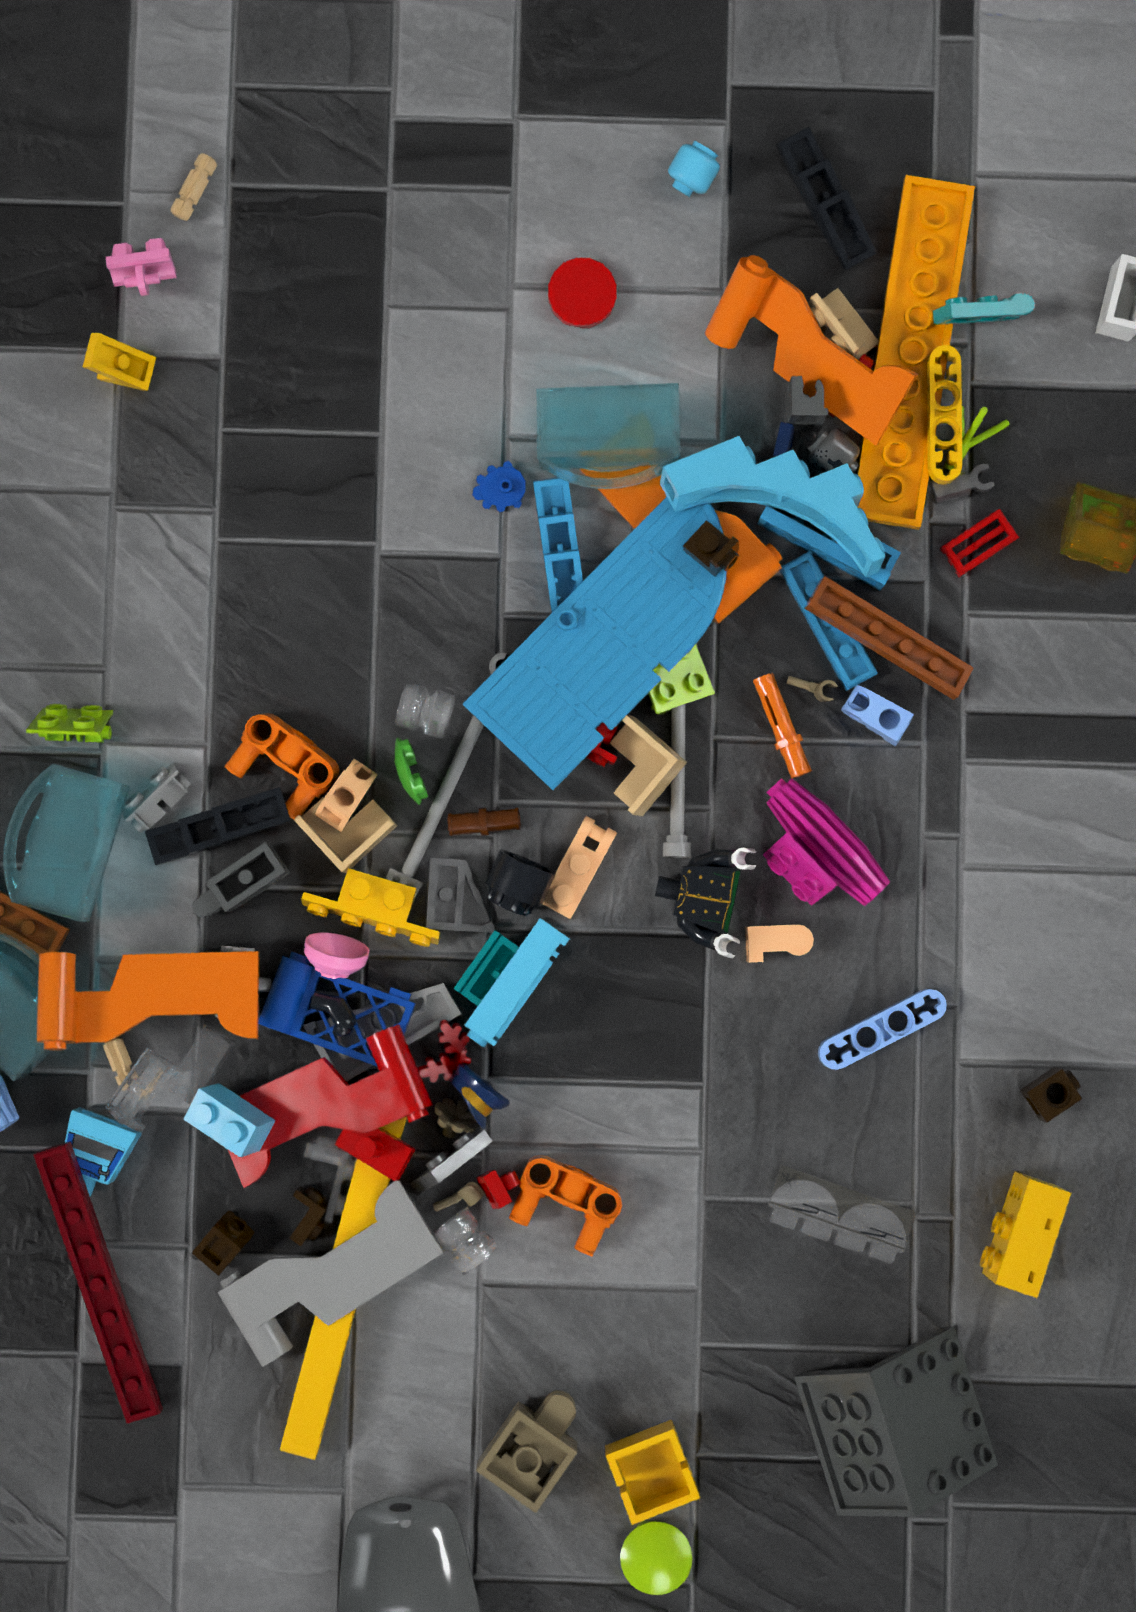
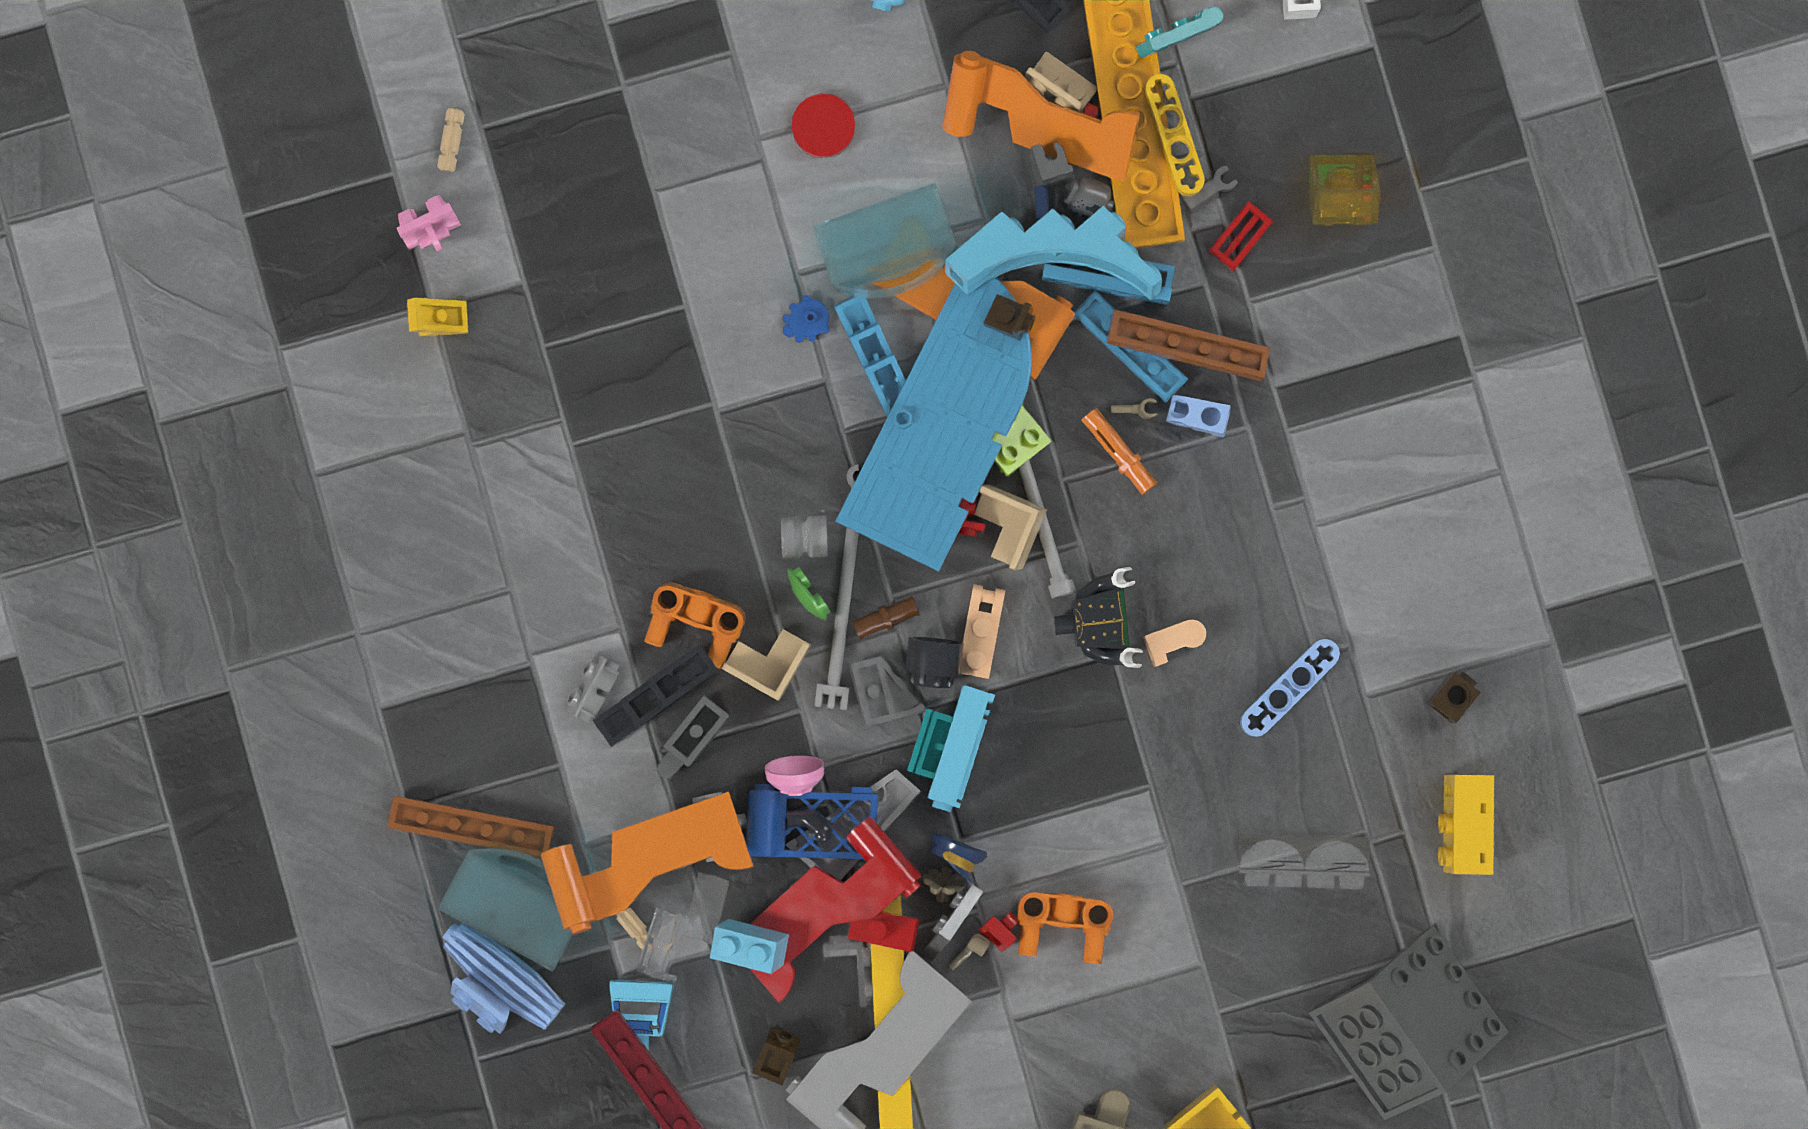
camera: 20 degrees left, 0 degrees up
(57, 721) = (487, 647): lime hinge -> none
(65, 842) = (527, 750): clear light blue piece -> none
(310, 1225) = (848, 1014): dark brown bracket -> none
(346, 795) = (759, 632): light nougat leg -> none
(375, 903) = (814, 719): yellow bracket -> none
(447, 1065) = (921, 841): red animal -> none
(465, 1241) = (987, 986): clear wheel -> none
(819, 848) = (1185, 548): dark pink plate -> none
(967, 440) = (1201, 150): lime plant -> none

